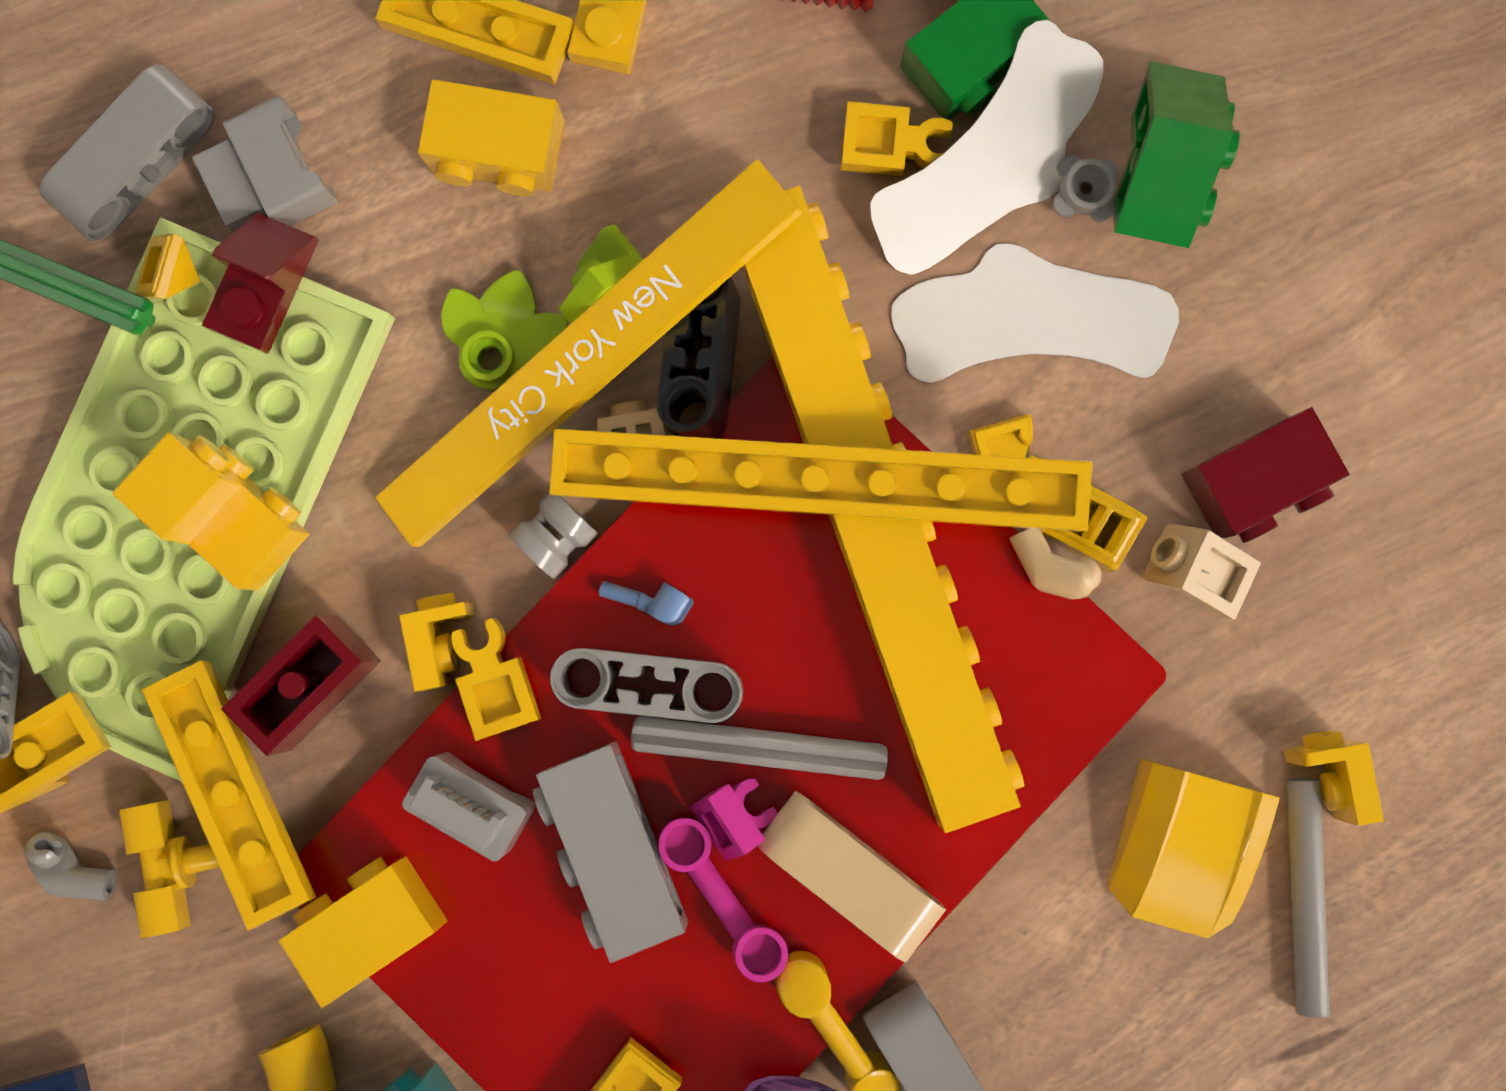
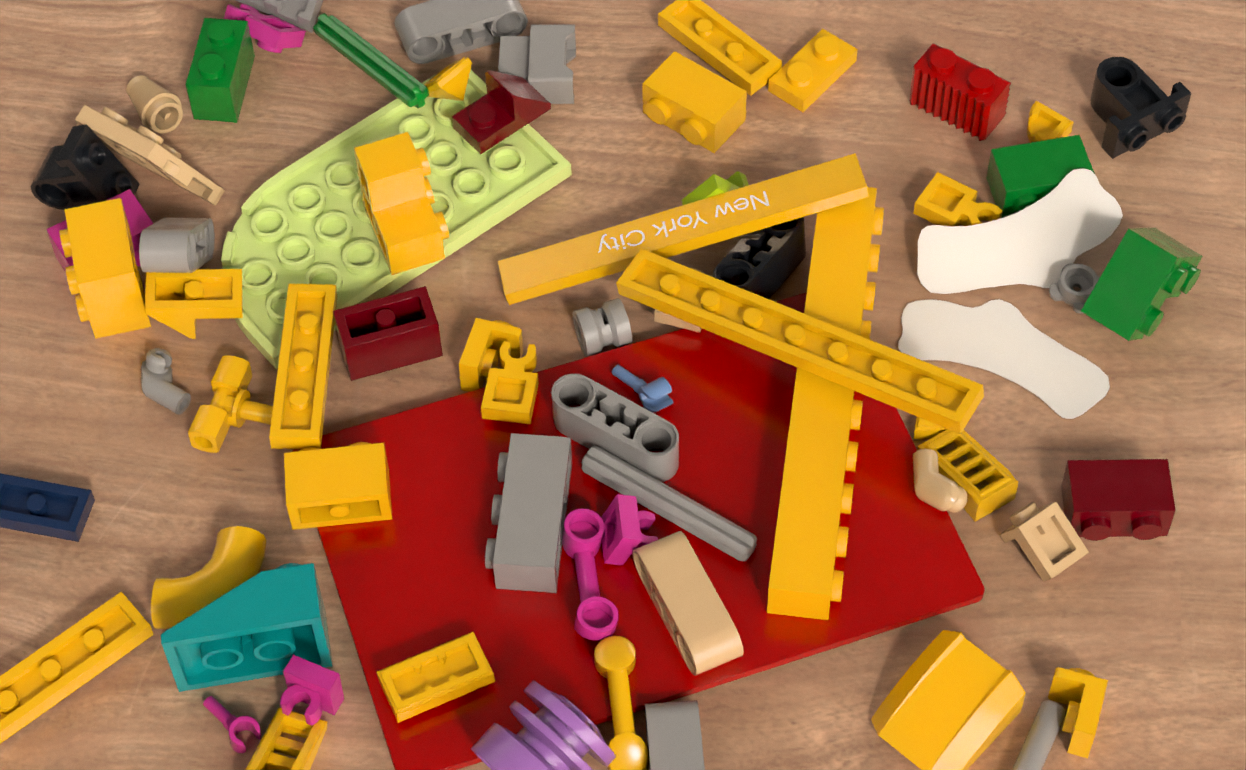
camera: 20 degrees right, 30 degrees down
(468, 806) = (453, 442): light grey piece -> none
(500, 322) = (628, 202): lime plate -> none

